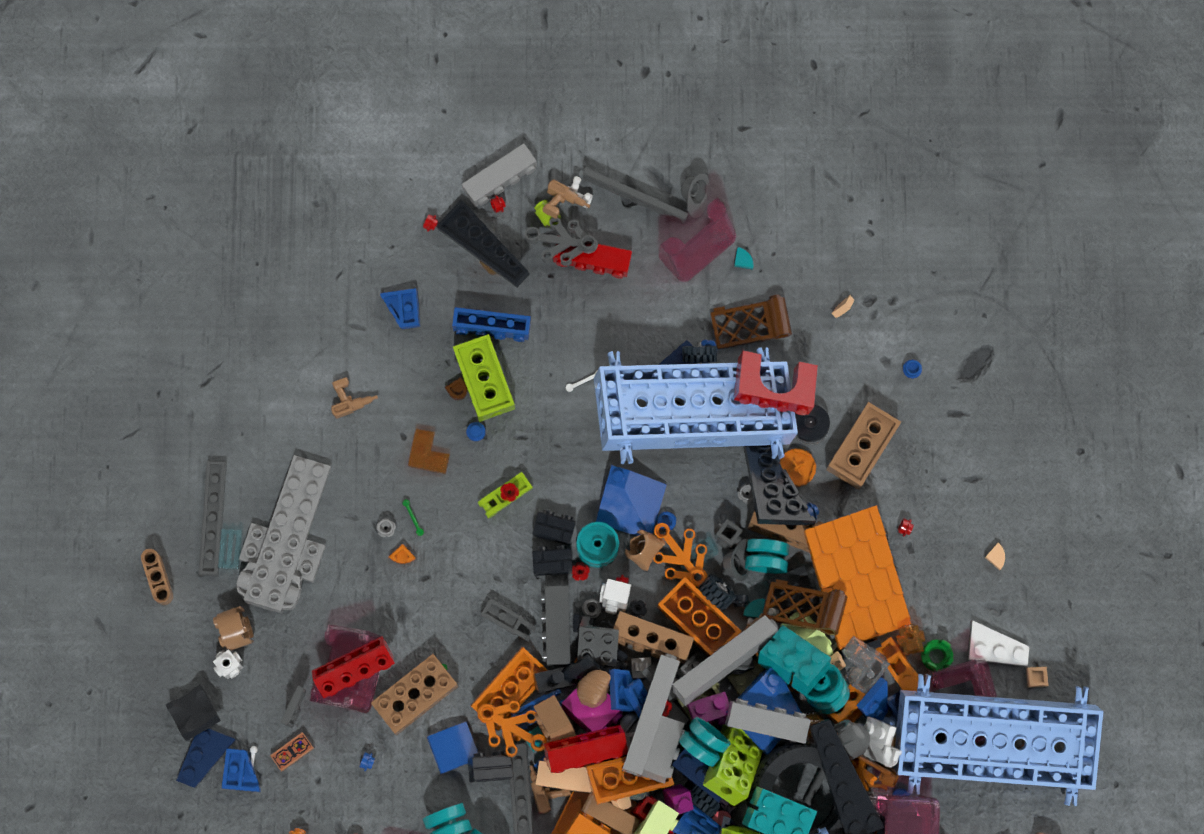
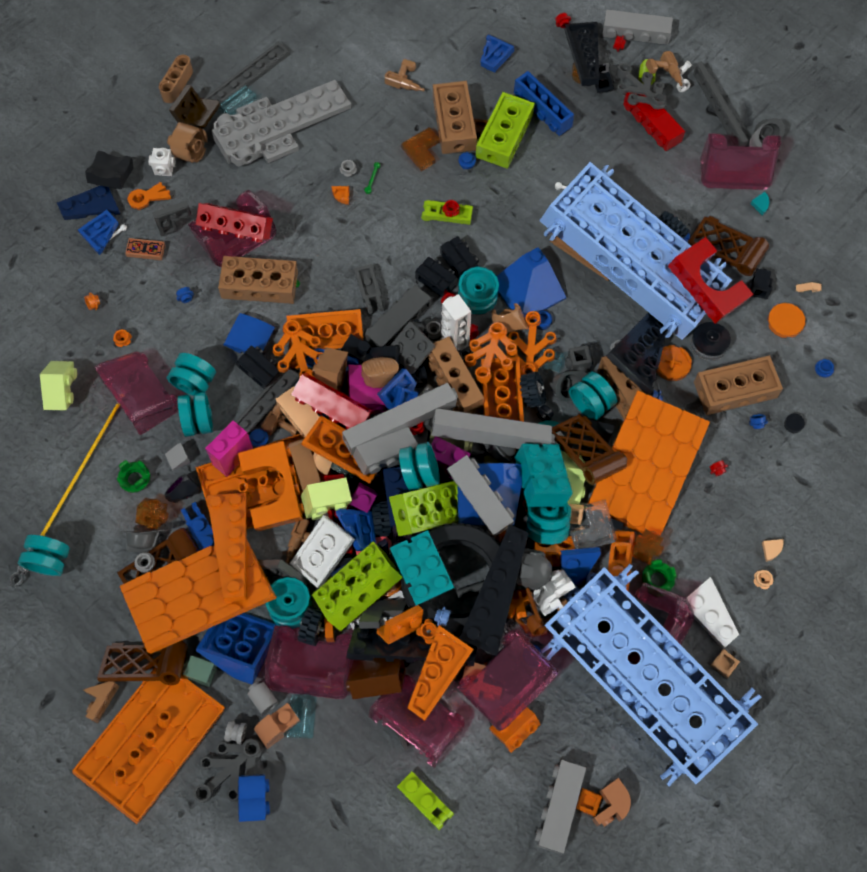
camera: 45 degrees right, 10 degrees down
(206, 592) = (192, 109): none -> dark brown bracket
(241, 712) = (140, 198): none -> orange piece
(431, 390) = (455, 98): none -> medium nougat brick
(521, 252) = (606, 80): none -> black brick
(545, 823) = (258, 438): none -> blue plate
(659, 590) = (496, 332): none -> orange plant
(805, 336) = (761, 283): none -> black brick
(850, 351) = (786, 320): none -> orange tile
(901, 460) = (758, 421): none -> blue plate
(928, 437) = (794, 423): none -> black tile
(1010, 582) = (763, 574): none -> light nougat plate

